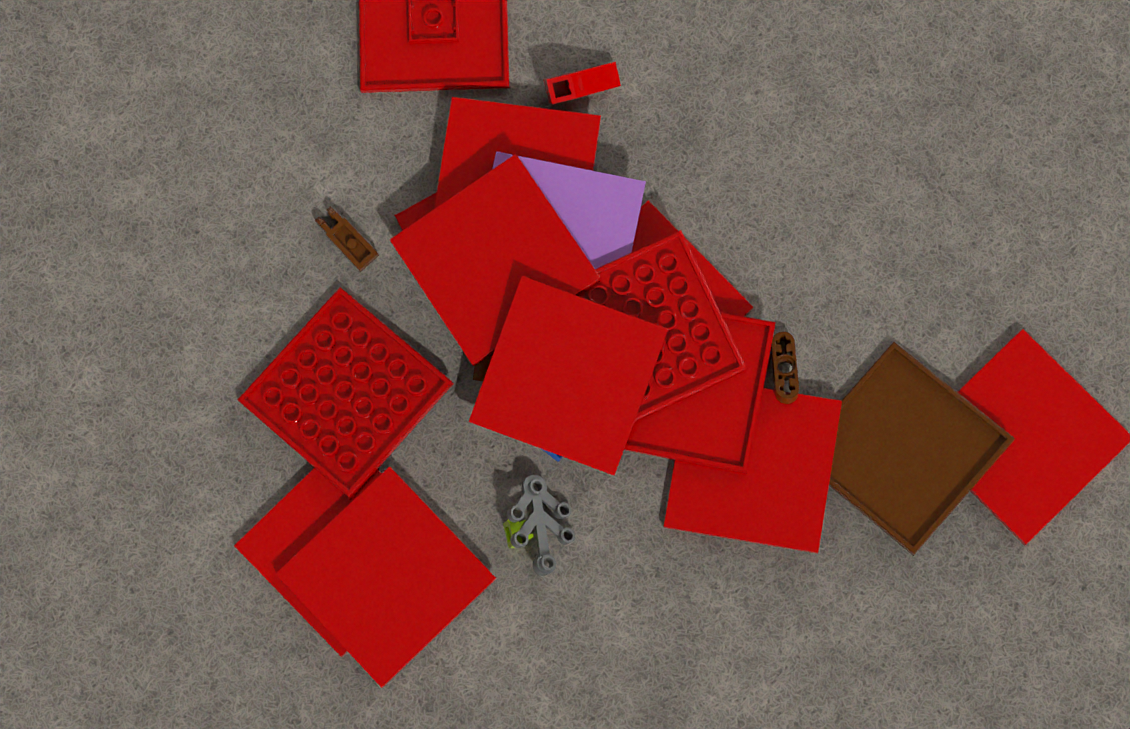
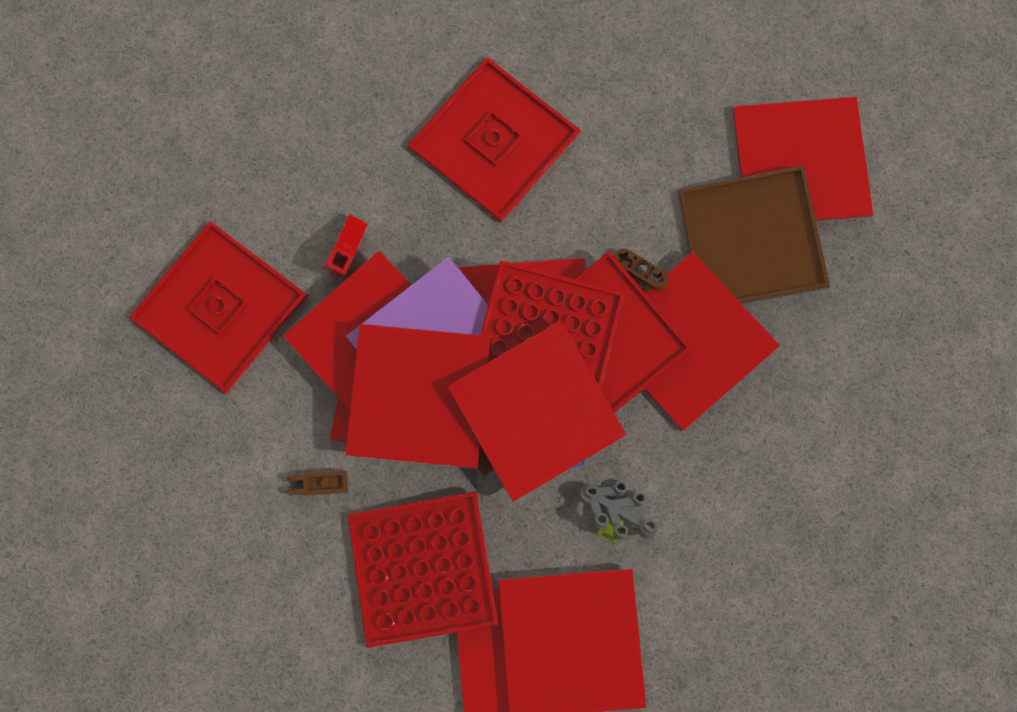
camera: 50 degrees left, 0 degrees up
(799, 133) = (494, 139): none -> red tile

